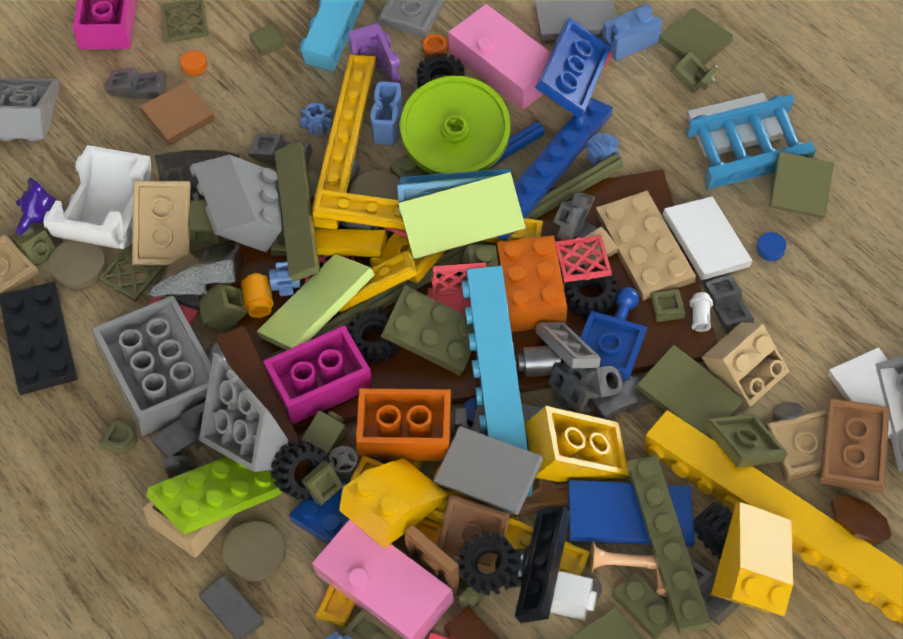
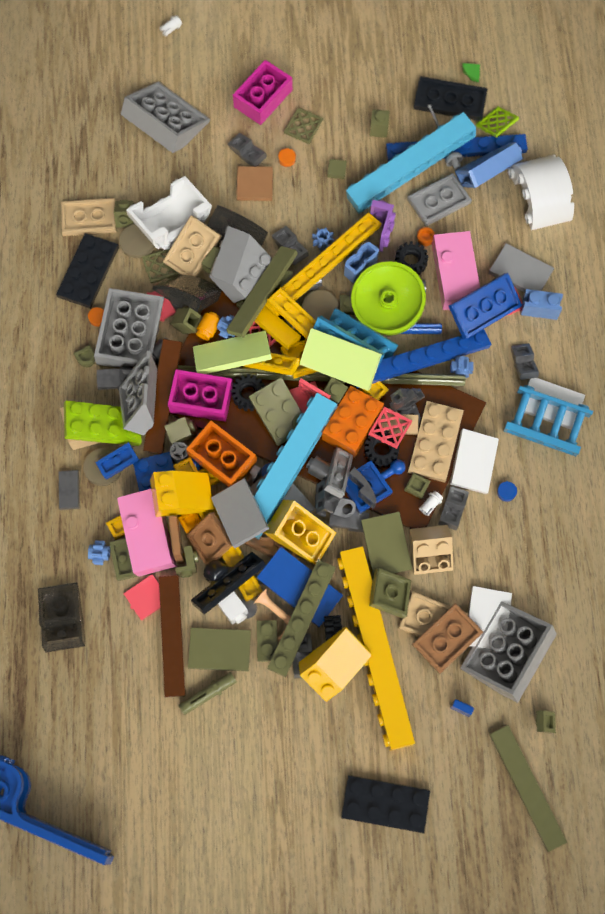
camera: 35 degrees right, 15 degrees up
(34, 205) = (137, 192): dark purple animal -> none
(96, 381) = (95, 316): none -> orange tile
(178, 465) = (100, 395): flat silver tile -> none
(271, 524) = (117, 461): none -> blue hinge
(289, 460) = (150, 451): black tyre -> none
(322, 483) = (156, 457): olive tile -> none
(479, 548) = (191, 555): black tyre -> none
(623, 344) = (366, 492): none -> flat silver slope
(662, 101) = (524, 361): none -> flat silver slope
(694, 73) = (555, 355): olive bracket -> none
(696, 34) = (577, 333): olive tile -> none
(787, 411) = (430, 592): flat silver piece -> none
(801, 185) = (553, 468): olive tile -> none
(860, 519) = (413, 680): reddish brown piece -> none

